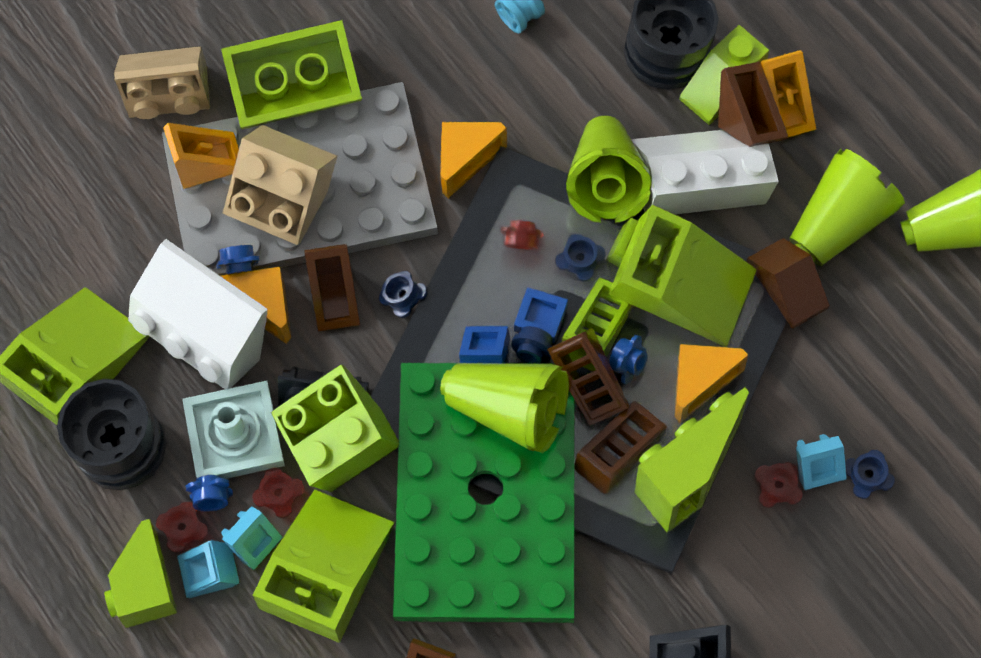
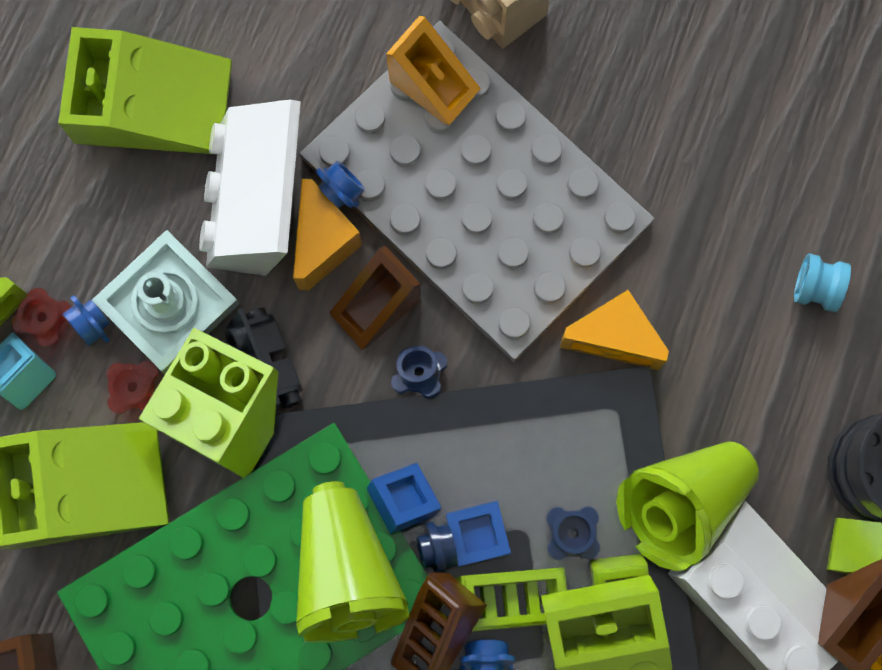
camera: 55 degrees right, 10 degrees up
(98, 417) = (65, 167): black wheel -> none
(251, 537) = (64, 392): tile -> none
(278, 183) = (449, 169): tan slope -> none
(291, 74) = (579, 104): lime slope -> none
(521, 235) = (554, 456): clear red plate -> none

